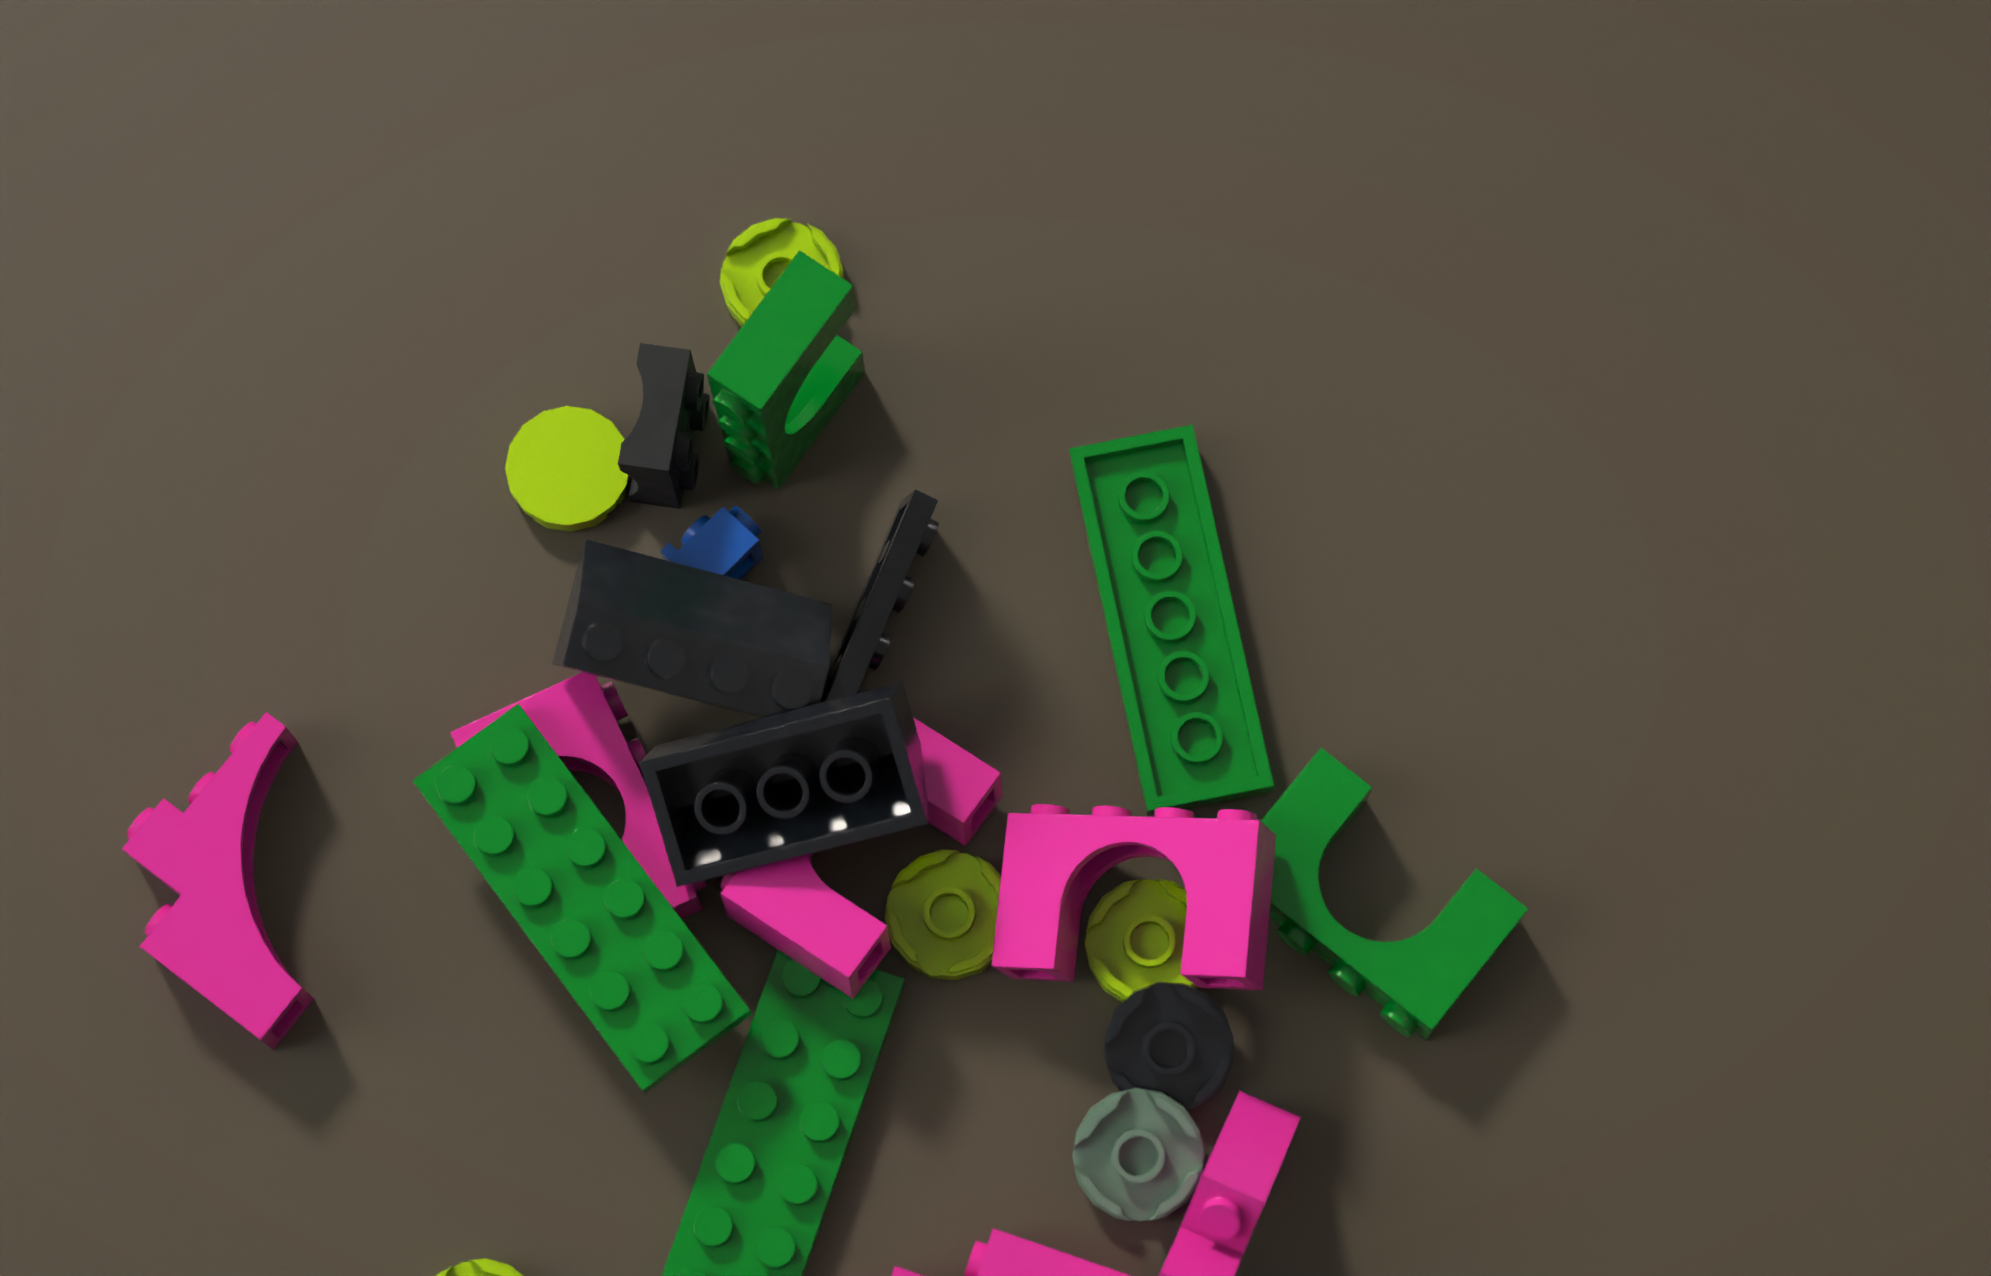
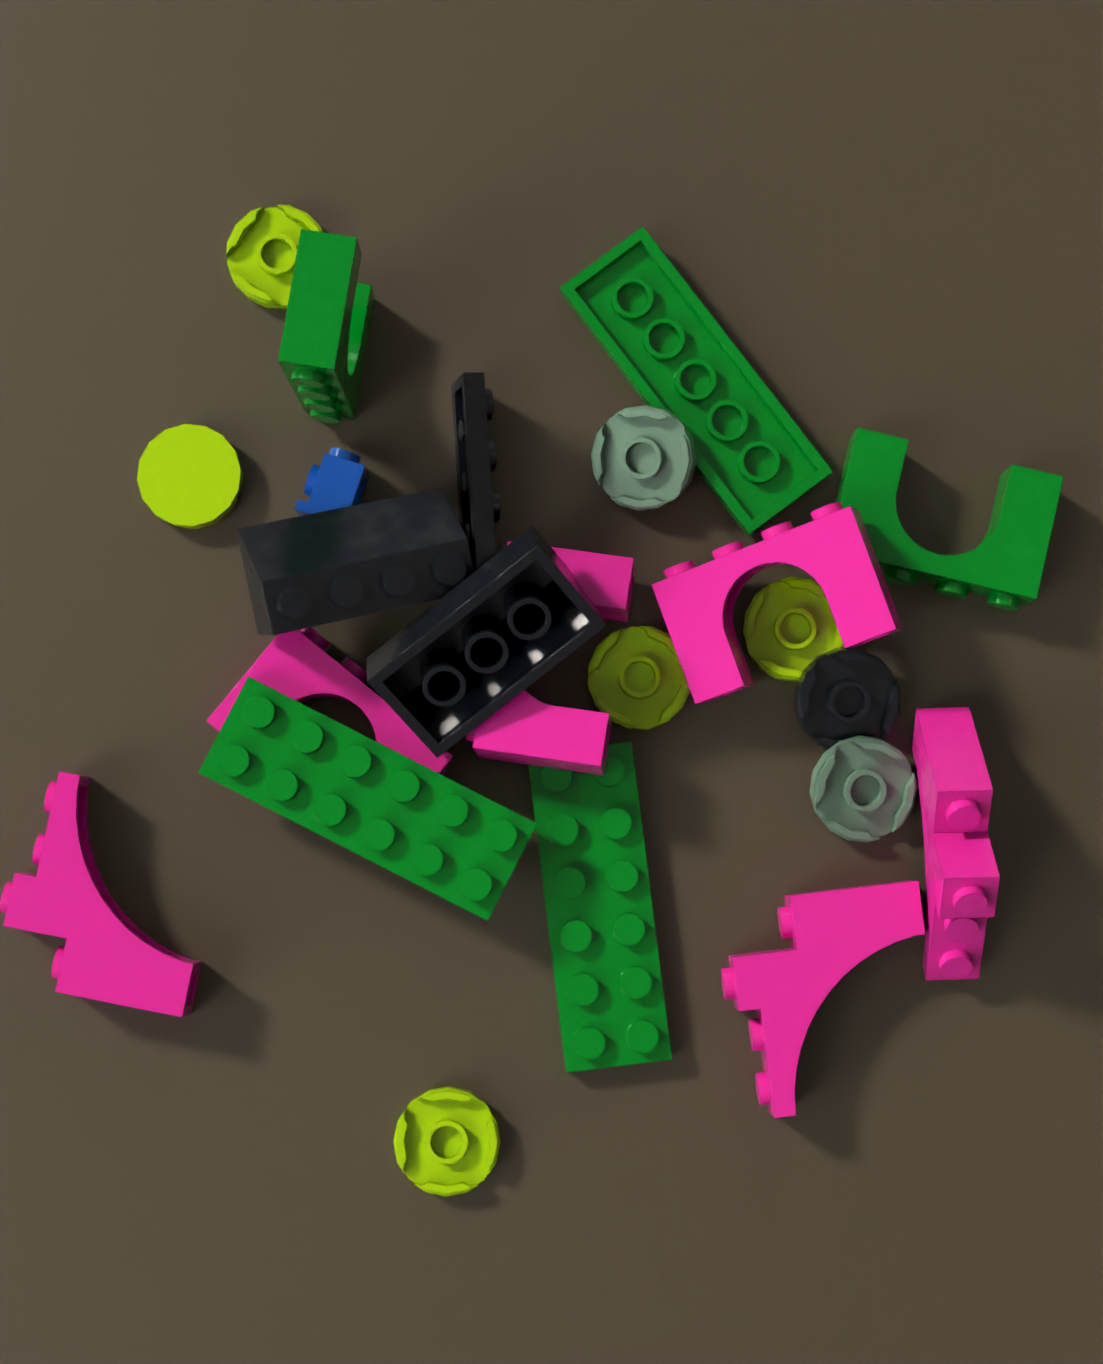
camera: 30 degrees left, 10 degrees up
(661, 444) = (257, 432): black brick -> none
(1071, 674) = (644, 457): none -> sand green tile

